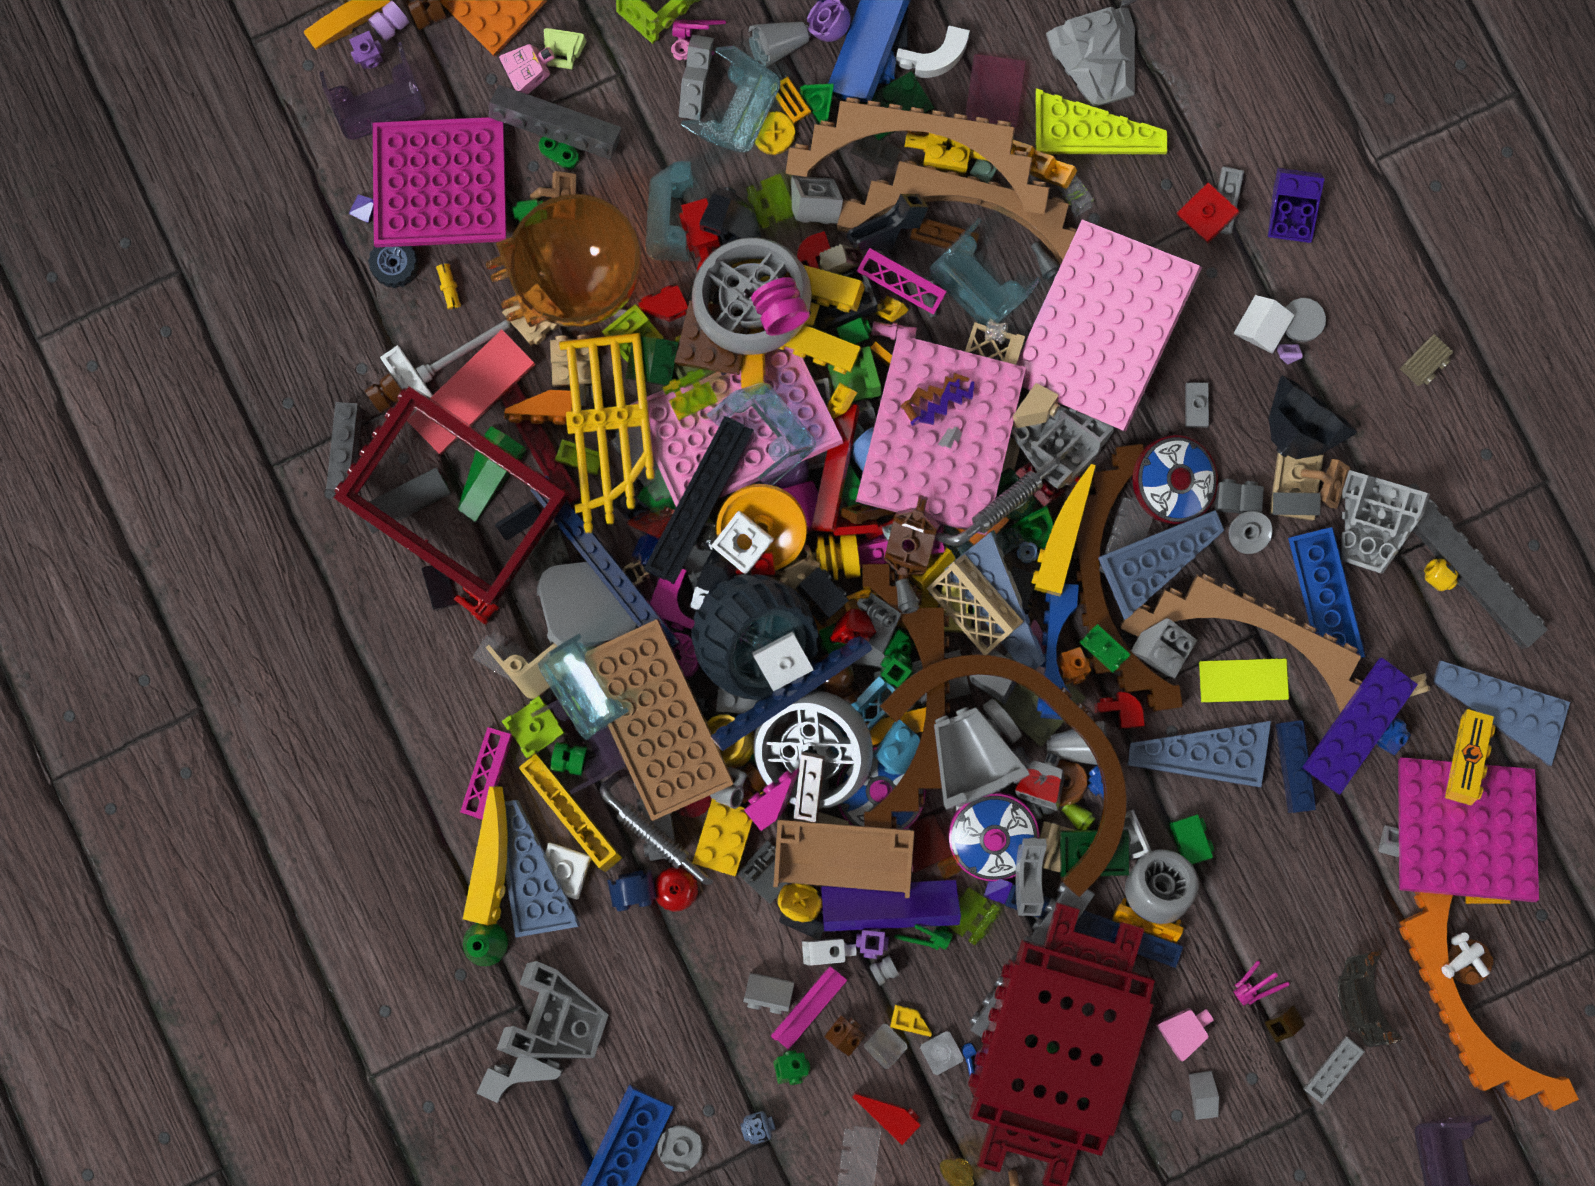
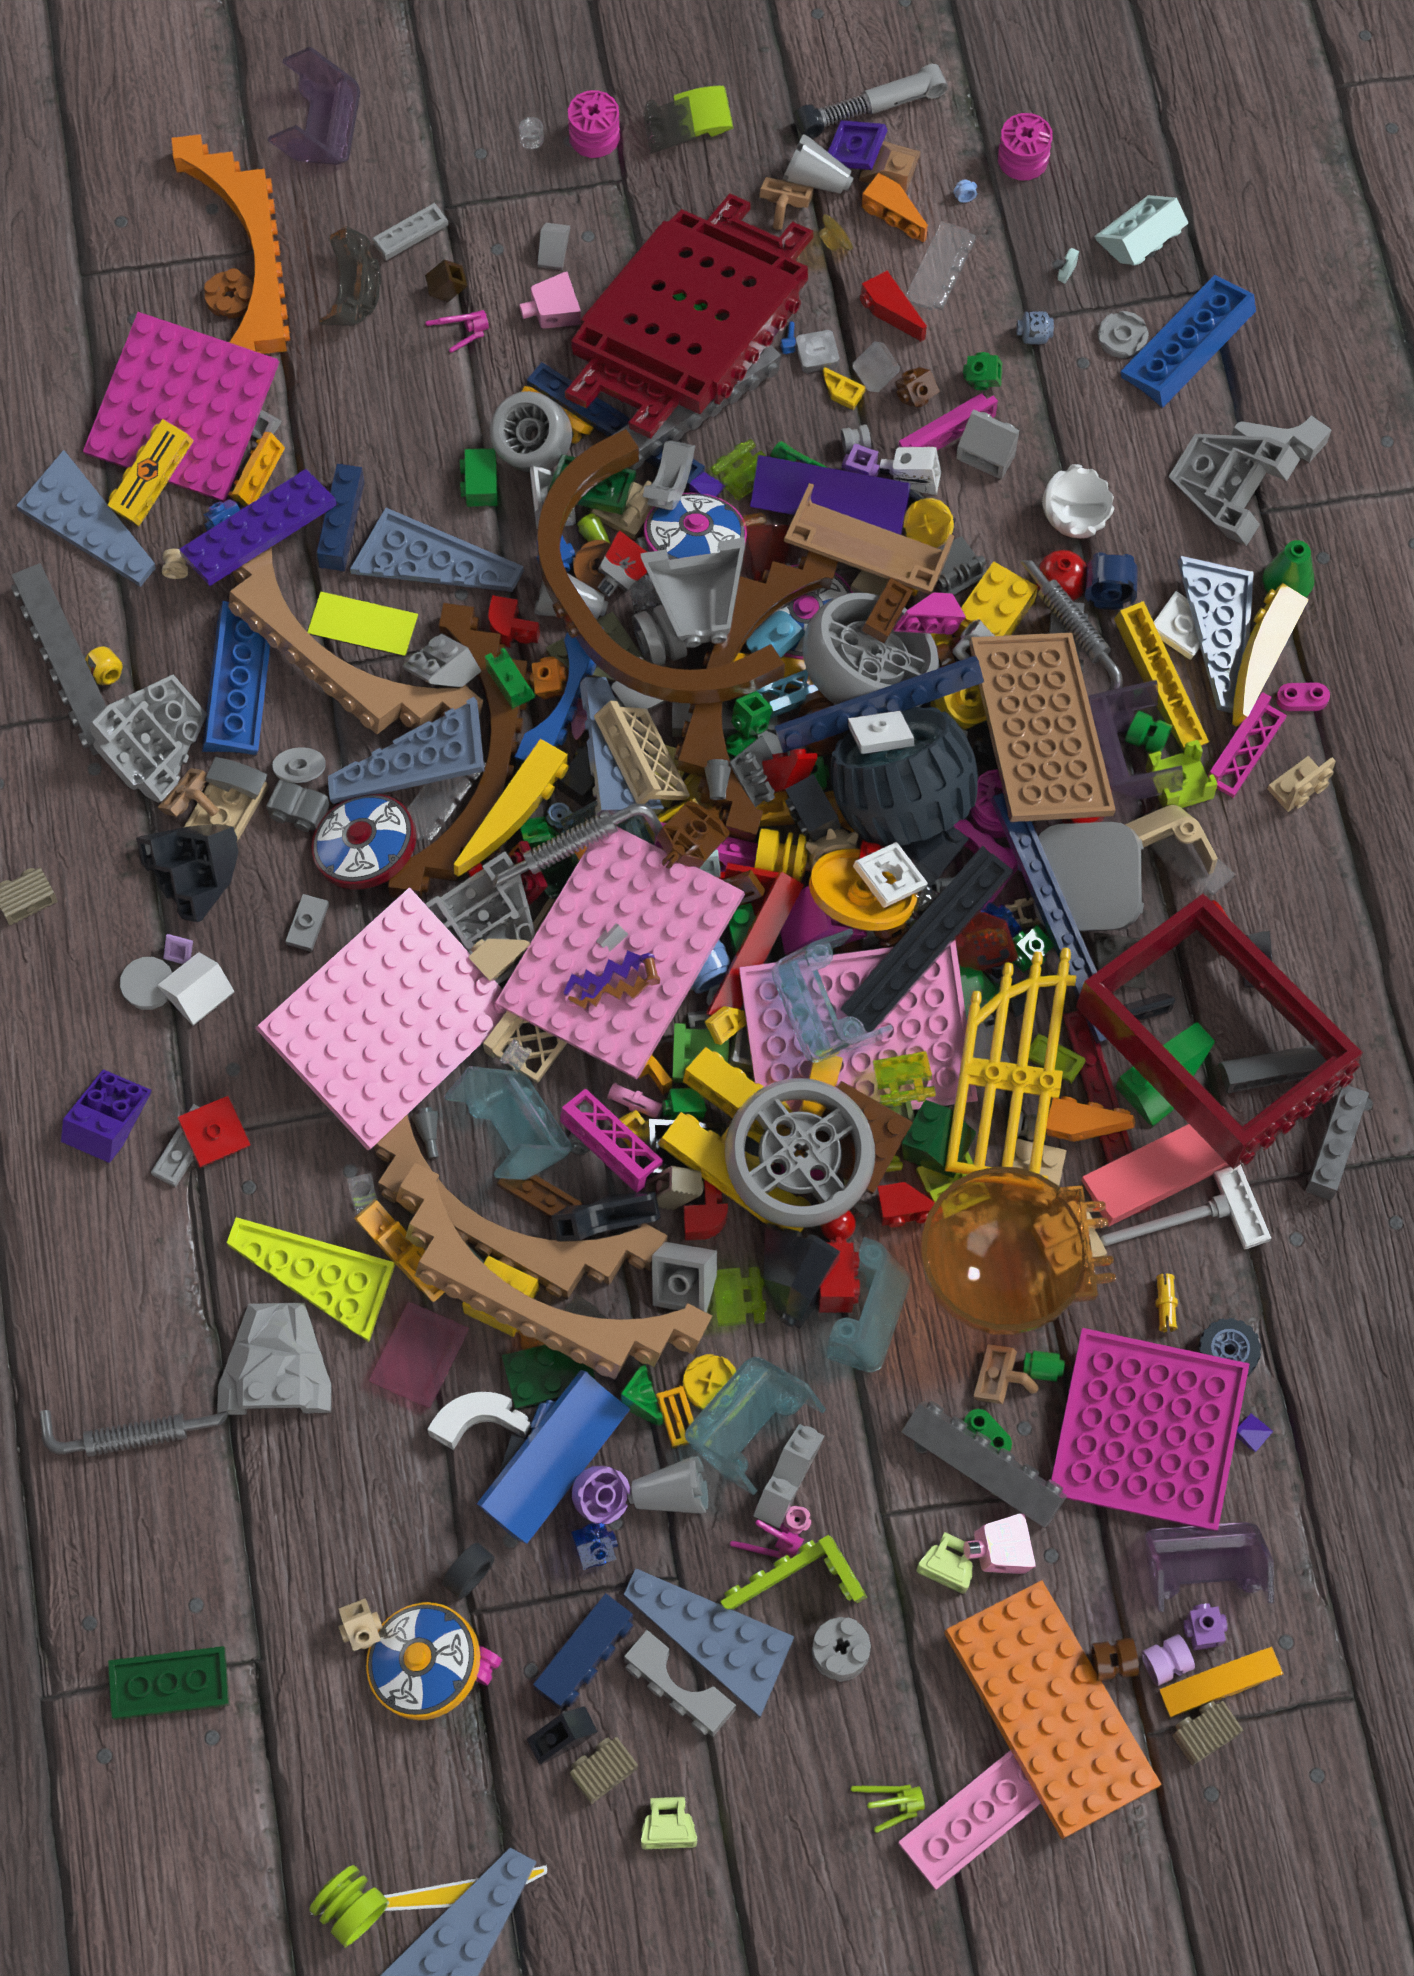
camera: 170 degrees left, 15 degrees down
(384, 393) = (1275, 1192): reddish brown wheel -> none
(434, 751) = (1300, 782): none -> tan bracket
(450, 835) = (1304, 698): none -> dark pink plate
(578, 689) = (1116, 762): clear light blue windscreen -> none
(620, 539) = (1027, 944): none -> green brick
(677, 954) = (1077, 502): none -> white piece
(780, 306) = (772, 1090): dark pink wheel -> none
(1381, 792) = (257, 469): none -> light orange plate
(1468, 956) = (228, 290): white piece -> none

